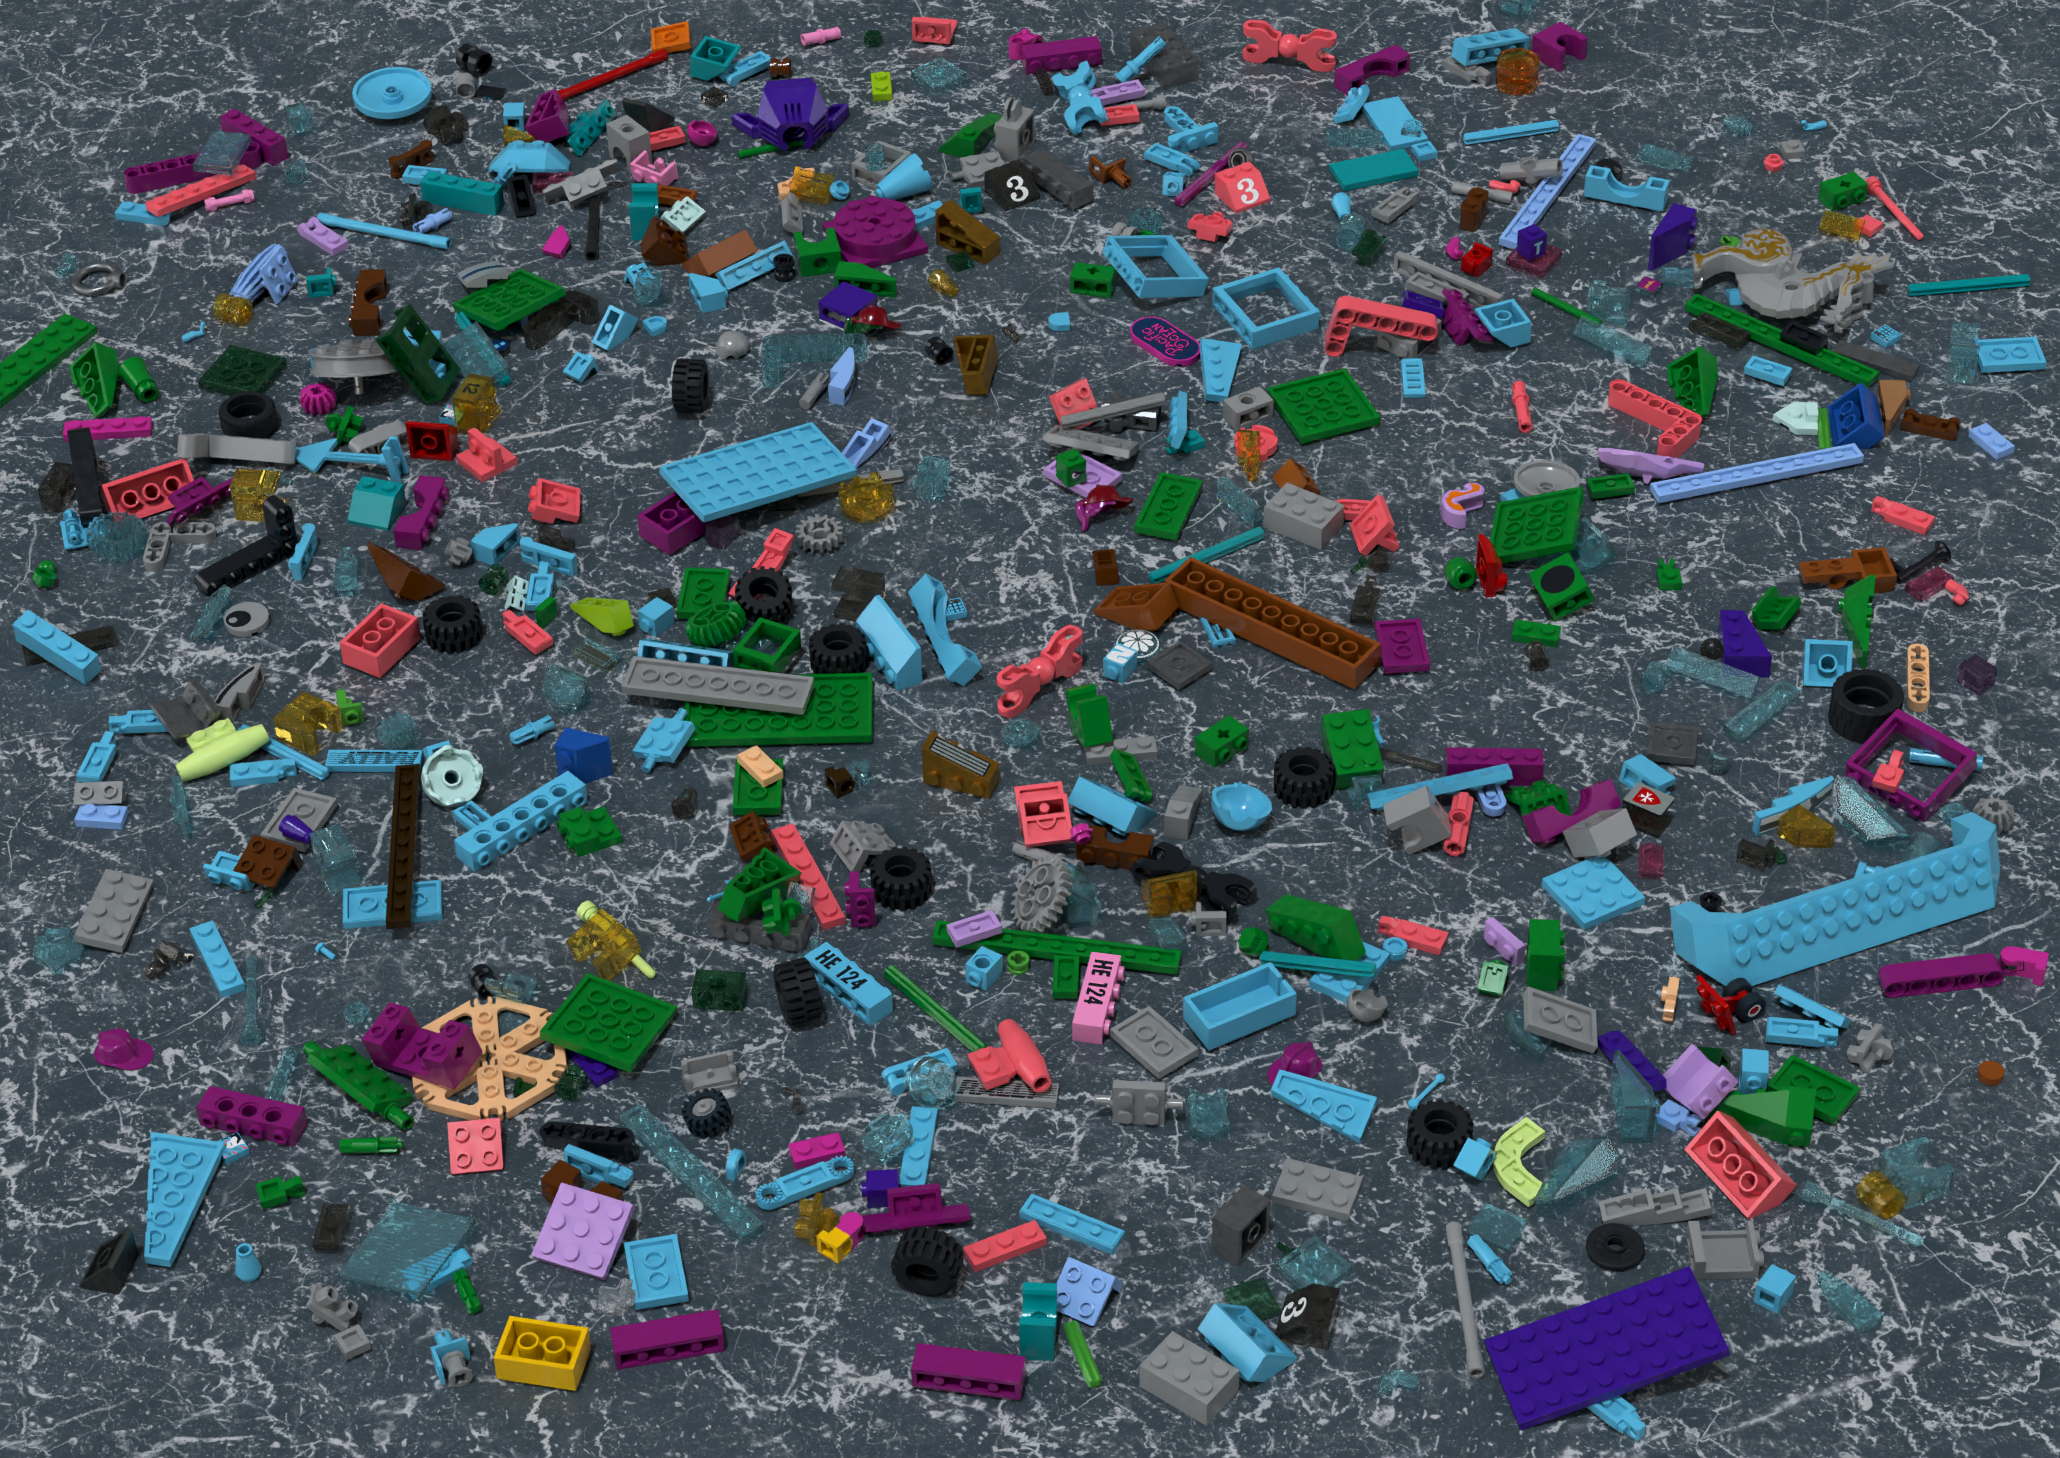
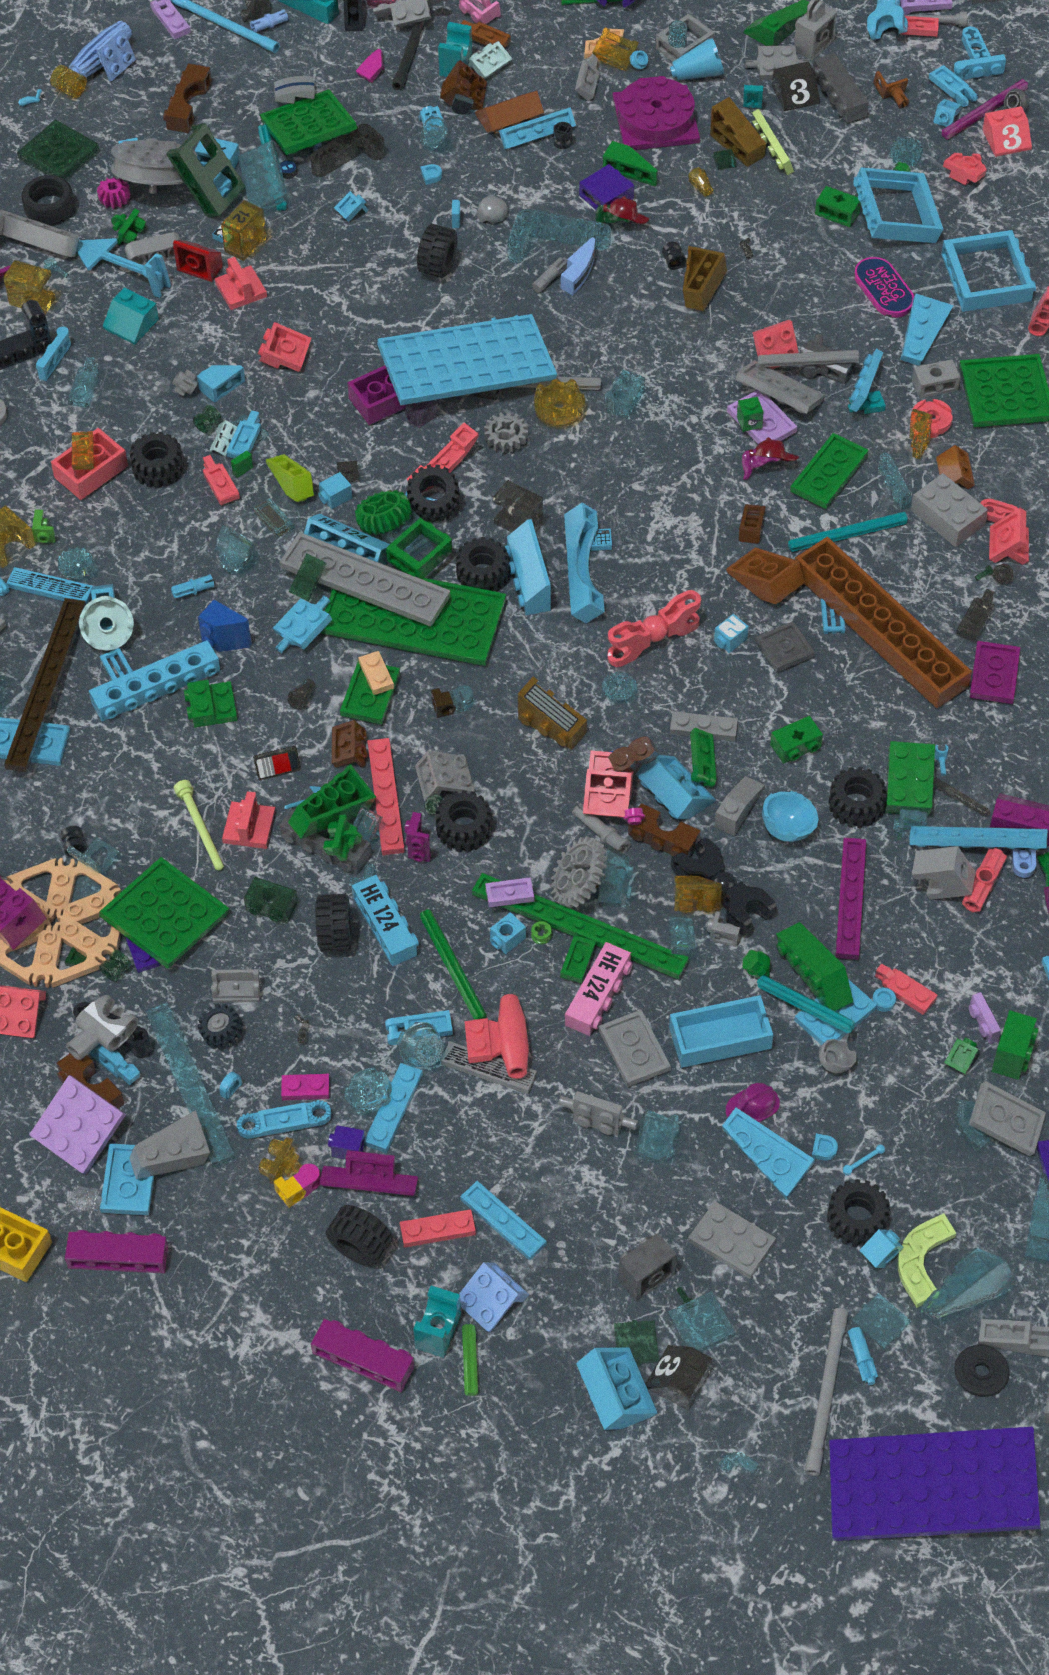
camera: 15 degrees right, 15 degrees up
(321, 284) = (153, 70): teal bracket -> none
(373, 624) = (82, 450): none -> clear yellow plate
(402, 576) = (130, 397): reddish brown wedge -> none
(415, 529) = (155, 350): magenta arch -> none
(553, 538) = (270, 387): clear smoke plate -> none
(558, 559) = (261, 404): medium azure plate -> none
(579, 1134) = (100, 1029): none -> light grey connector
(604, 935) = (194, 832): clear yellow piece -> none
(614, 328) = (392, 170): medium azure slope -> none
(657, 693) = (307, 577): none -> clear green tile
(667, 259) = (461, 104): none -> black tile
(669, 928) = (249, 823): none -> coral bracket
(680, 868) = (277, 763): none -> slope
(695, 351) = (455, 213): none -> medium azure tile
(695, 1229) = (171, 1149): none -> light grey wedge
(700, 589) = (384, 471): green plate -> none
(707, 292) = (486, 149): medium azure slope -> none
(817, 257) = (595, 130): green piece -> none
(861, 867) = (429, 804): none -> clear green plate
(867, 444) = (576, 345): light blue slope -> none
(926, 215) = (704, 102): medium azure plate -> none
(1007, 238) = (774, 146): none -> yellowish green plate
(1059, 321) = (794, 245): medium azure tile -> none
(1067, 775) = (639, 752): none -> reddish brown brick
(1088, 715) = (681, 688): green piece -> none
(1121, 229) = (882, 160): light grey wheel -> none
(1143, 641) = (756, 614): dish -> none
(1189, 1378) = (553, 1412): light grey brick -> none
(1327, 861) = (850, 898): none -> magenta plate
(1382, 1088) = (824, 1147): none -> medium azure tile
(1620, 1416) = (927, 1554): medium azure hinge -> none

